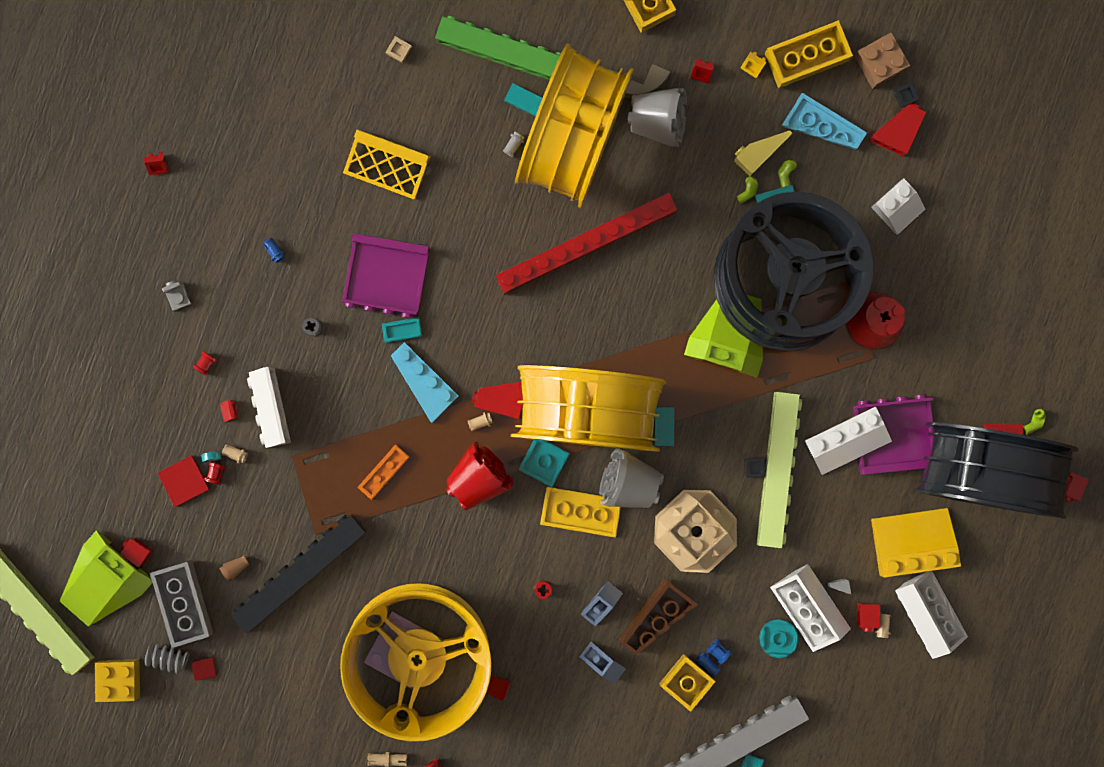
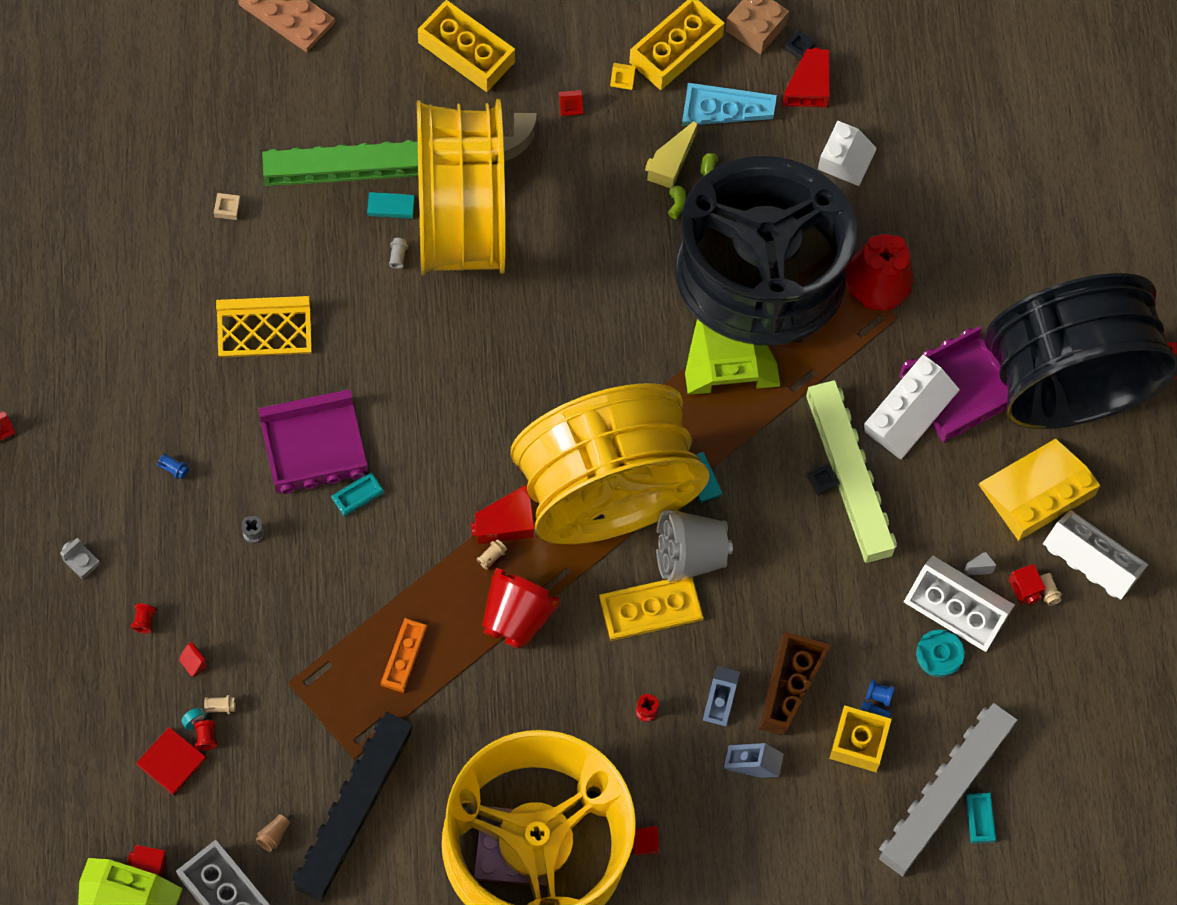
camera: 25 degrees left, 20 degrees down
(269, 407) = (240, 634): white slope -> none
(426, 385) = (414, 542): medium azure wing -> none
(544, 461) = (583, 569): teal tile -> none
(586, 243) = (524, 322): red brick -> none
(659, 115) = (545, 159): light grey cone -> none
(674, 529) = (786, 595): tan piece -> none

